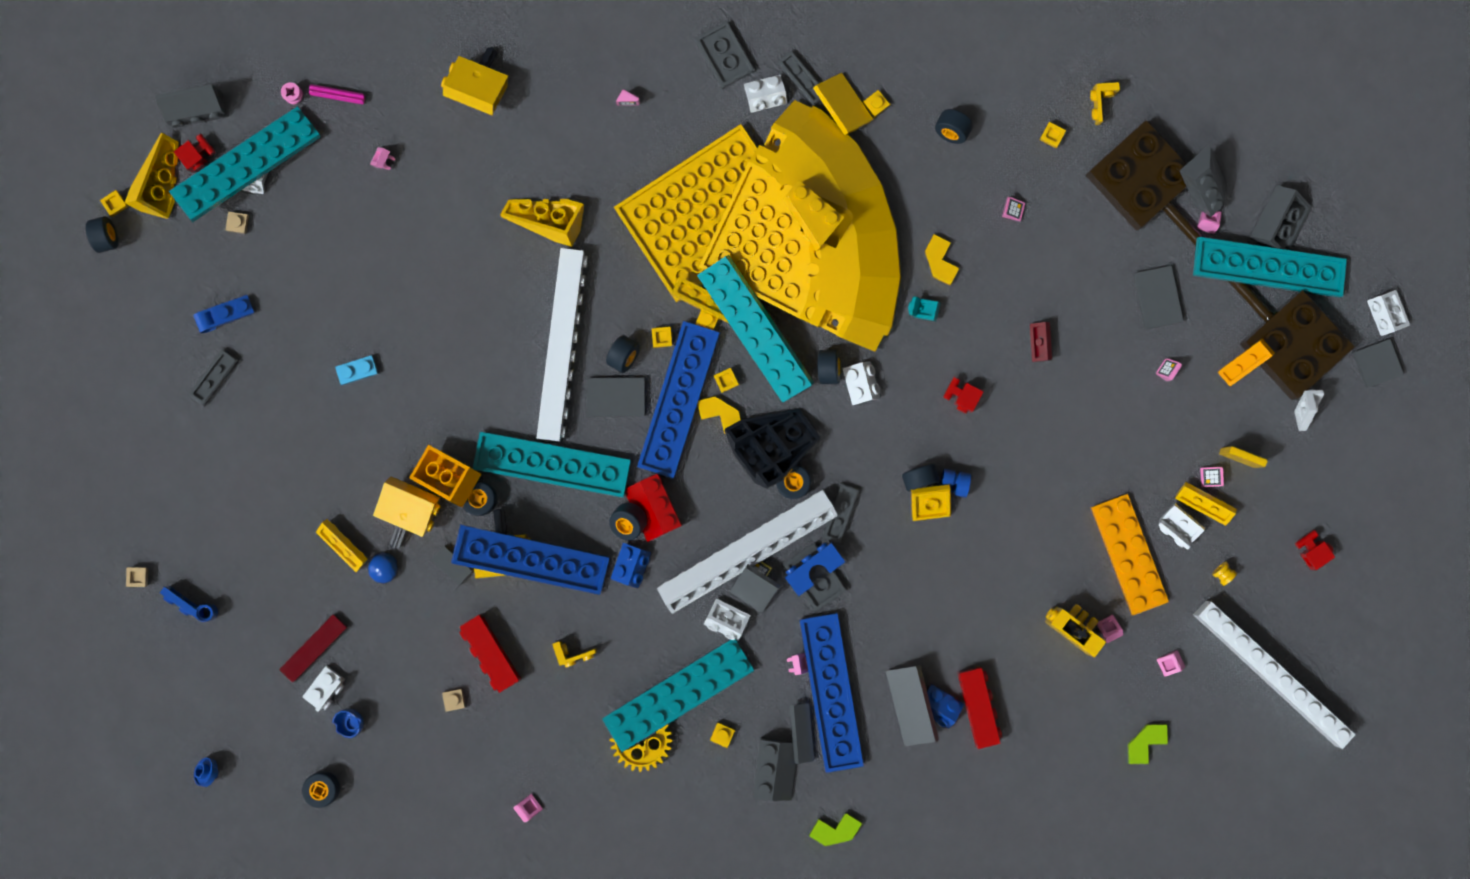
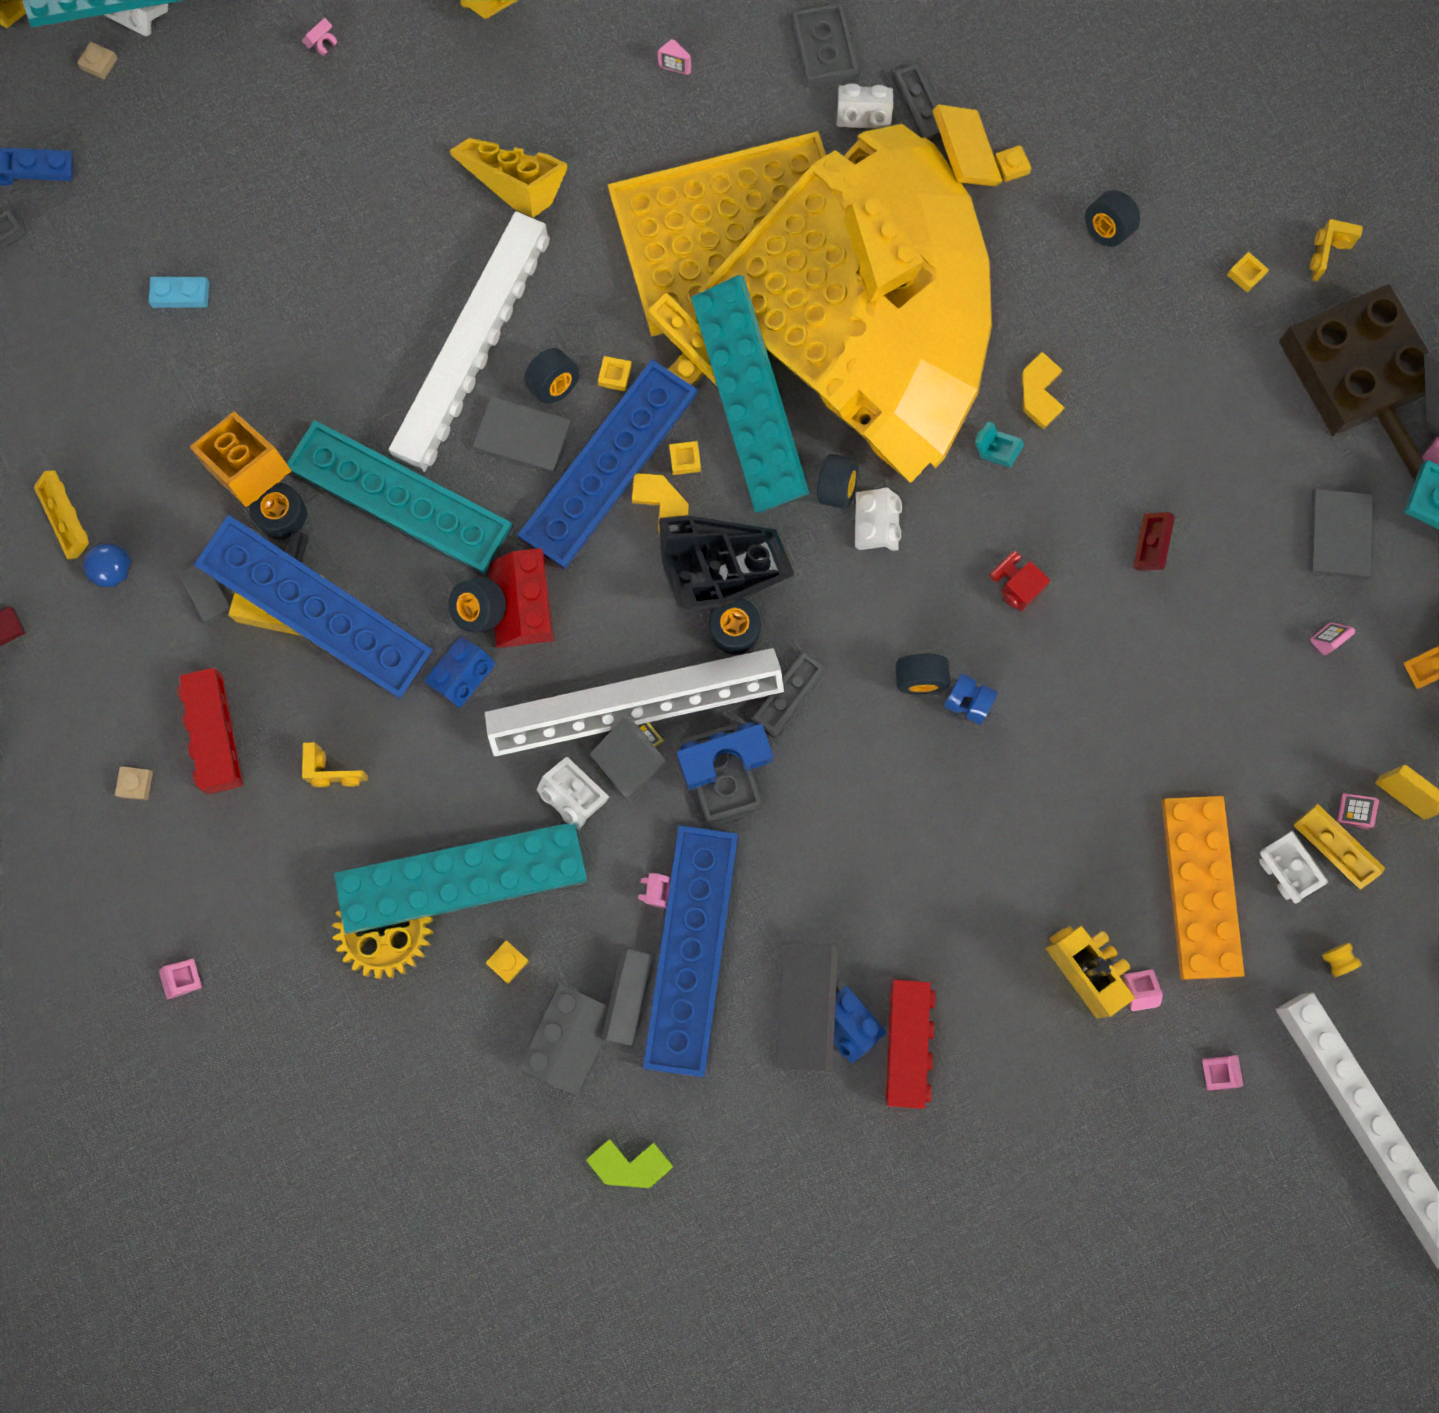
camera: 15 degrees right, 10 degrees down
(407, 509) = (169, 487): yellow piece -> none
(931, 502) = (927, 714): yellow tile -> none
(1013, 209) = (1164, 353): slope -> none
(1138, 746) = (1138, 1186): lime tile -> none

